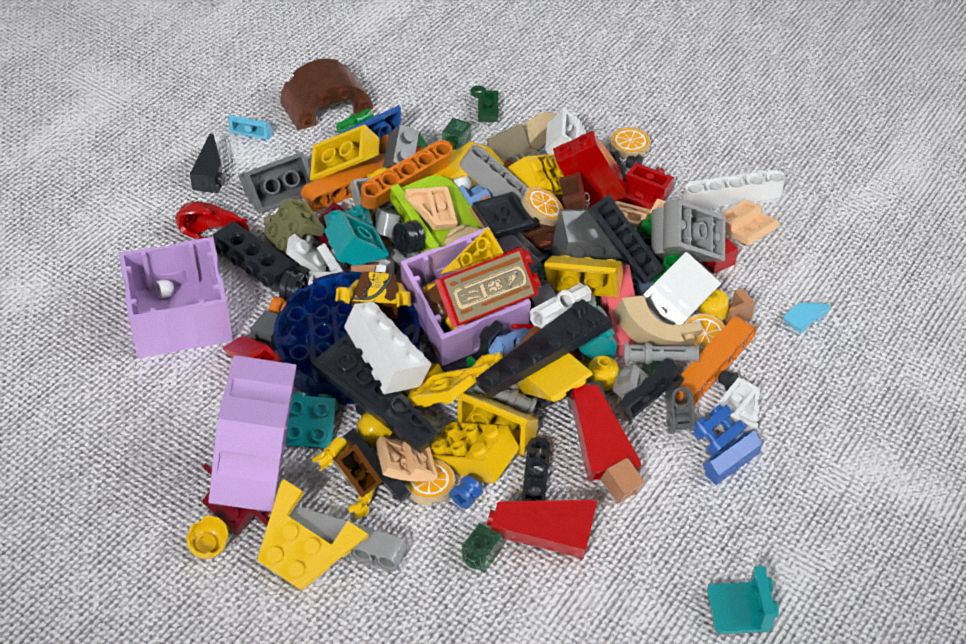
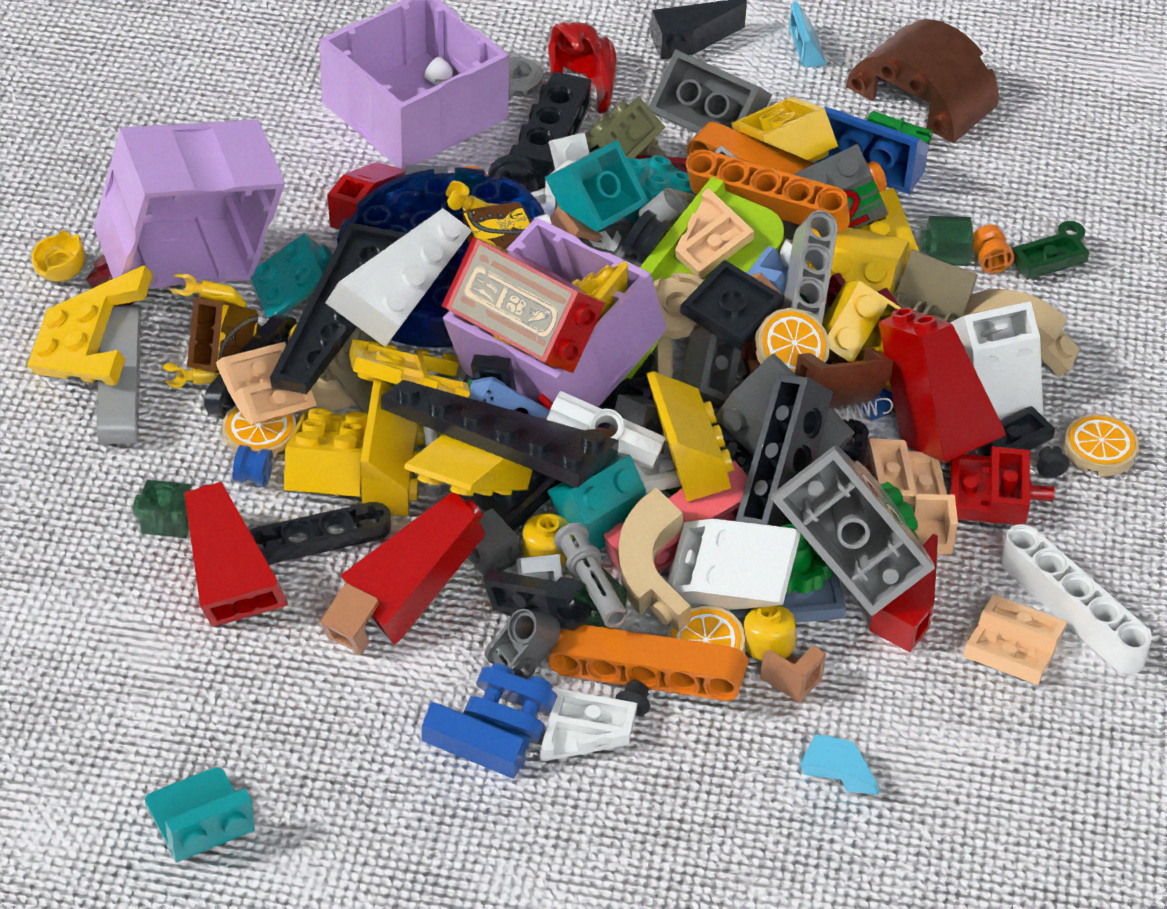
camera: 65 degrees right, 0 degrees up
(476, 120) = (992, 249): none -> orange wheel

